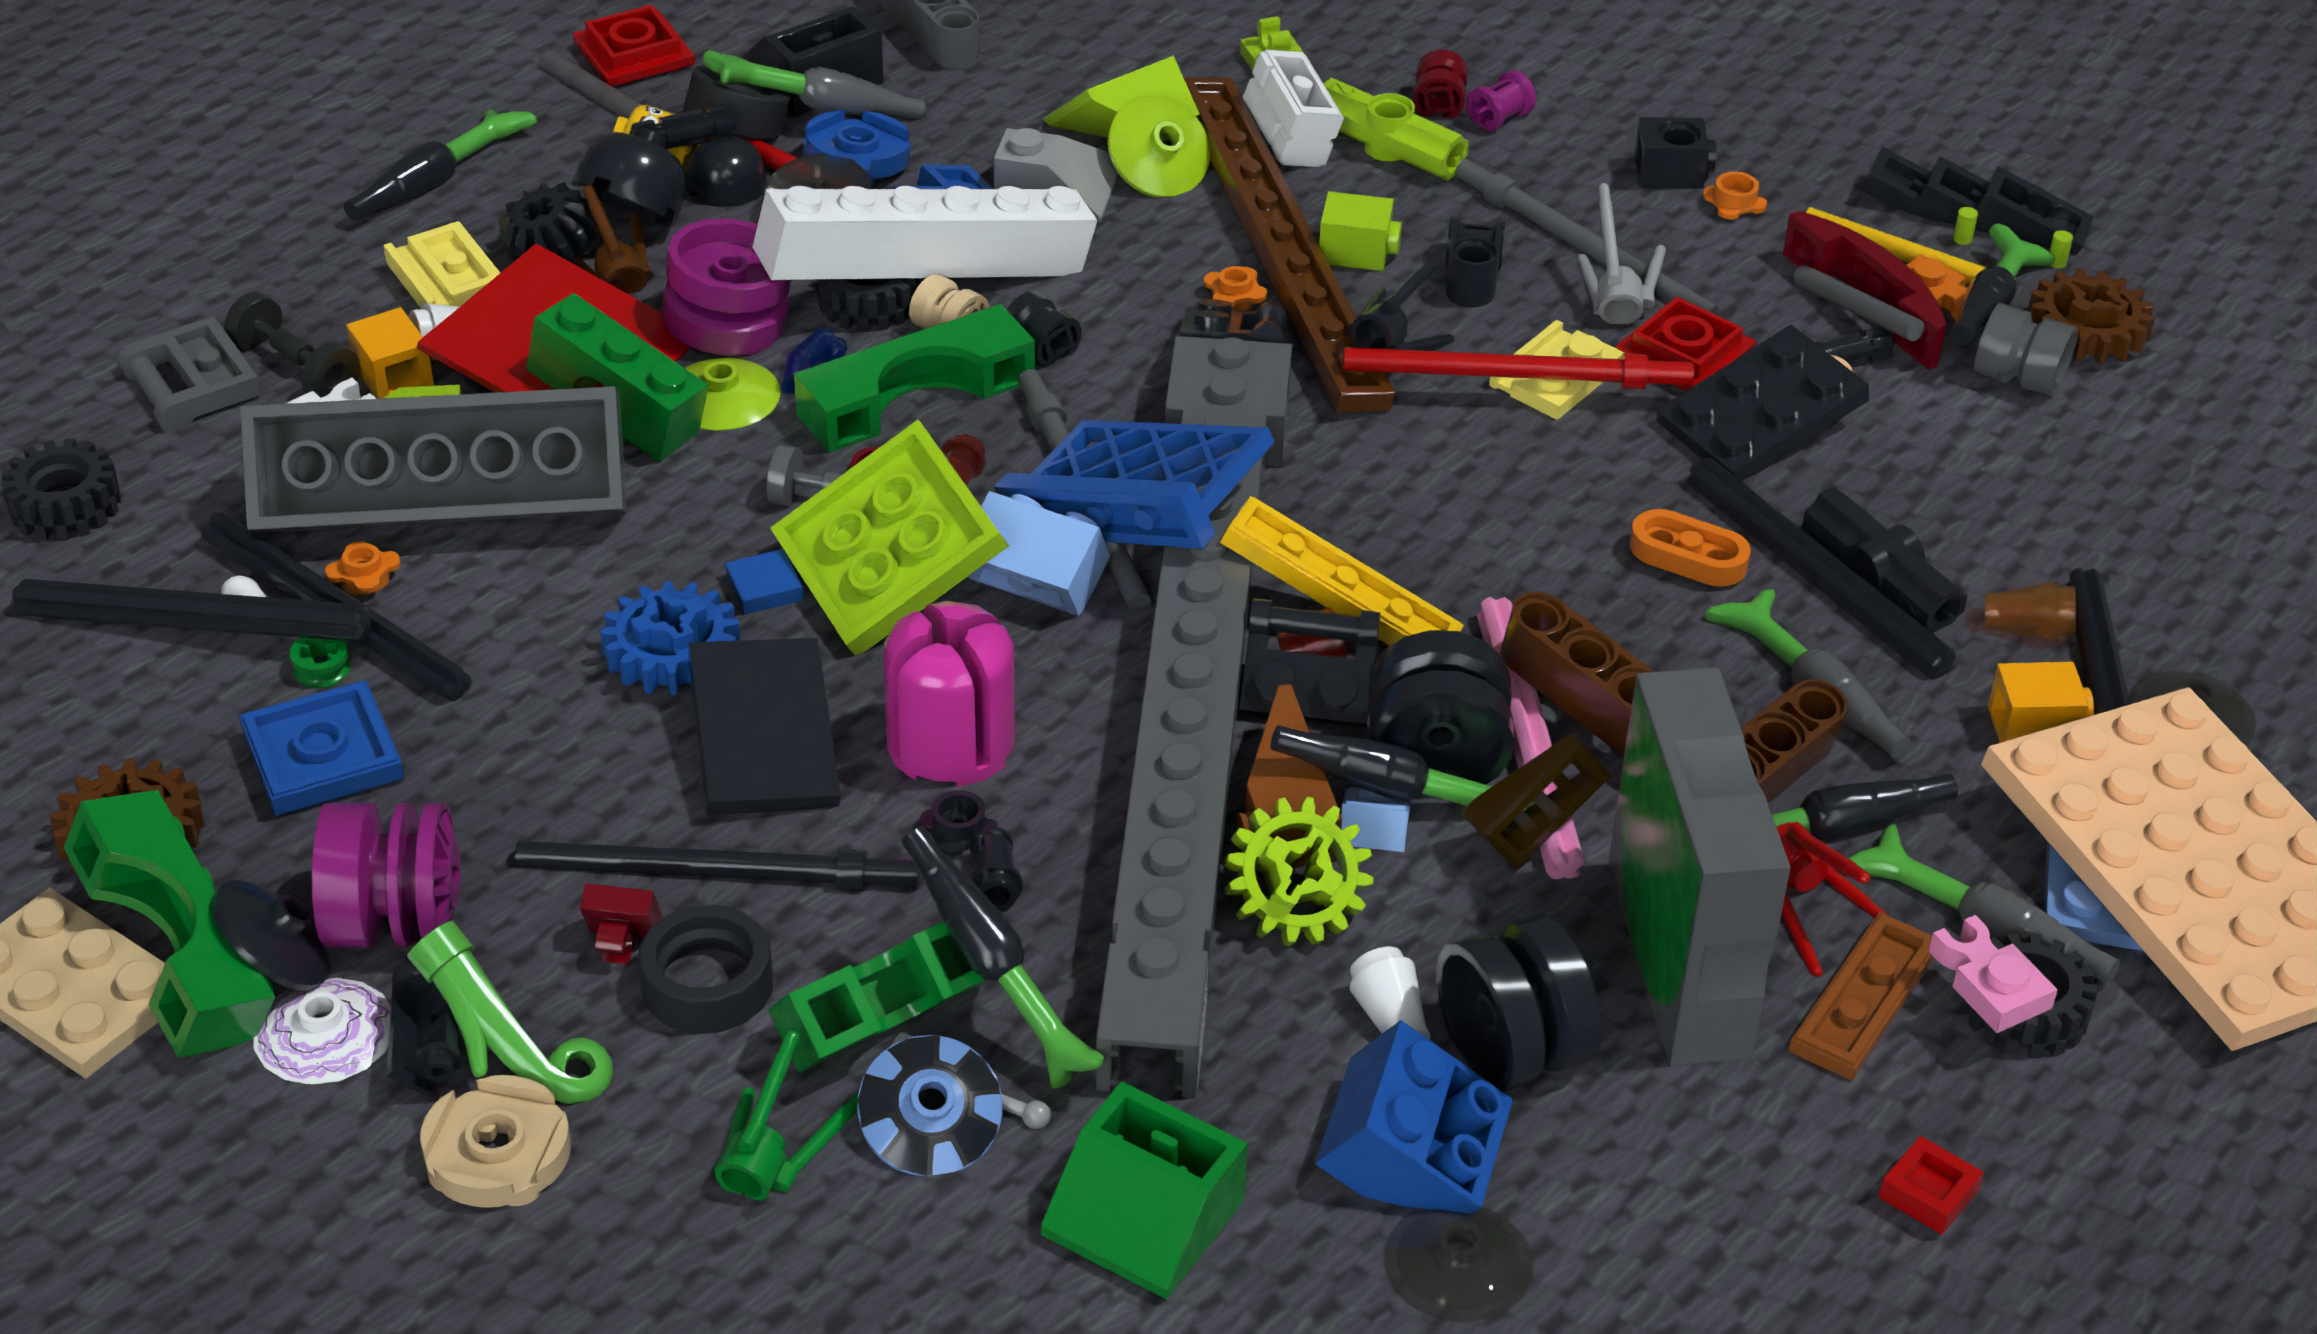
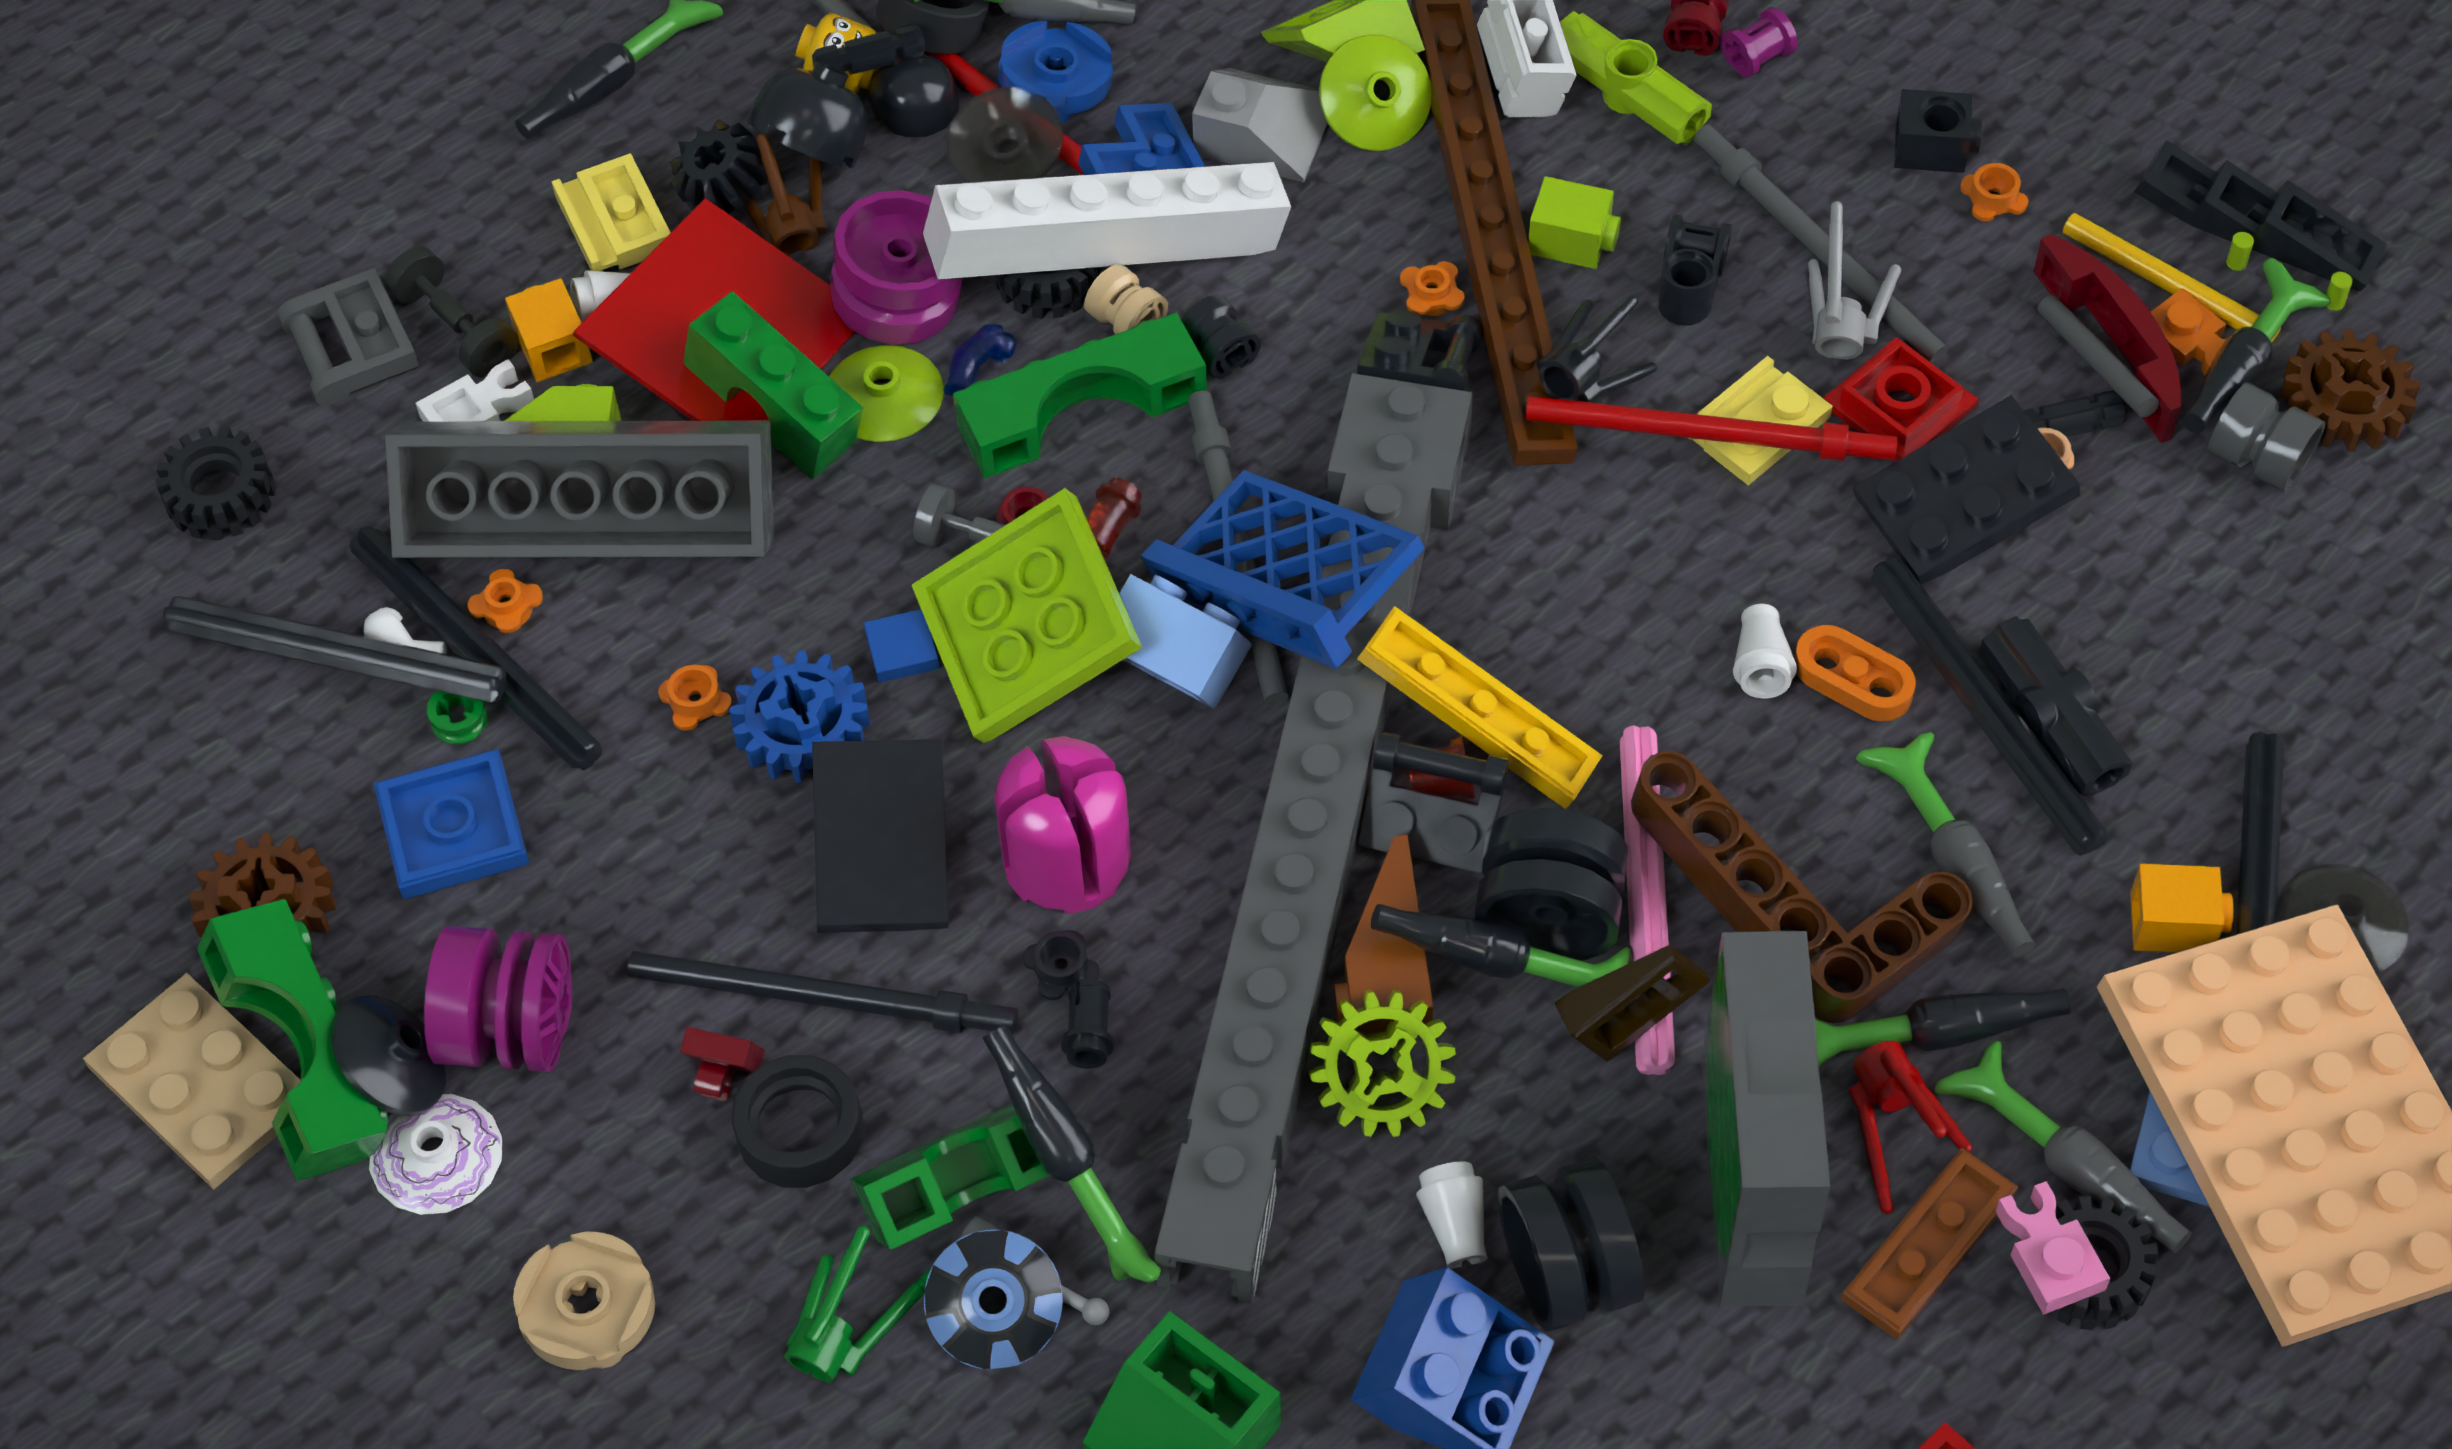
camera: 10 degrees right, 15 degrees up
(421, 1036) = (525, 1170): black hinge -> none
(485, 1019) = (585, 1177): bright green plant -> none
(561, 630) = (691, 681): none -> orange plate
(1380, 819) = (1471, 996): light blue slope -> none
(1602, 539) = (1763, 656): none -> white cone
(2033, 611) = (2201, 782): clear orange cone -> none

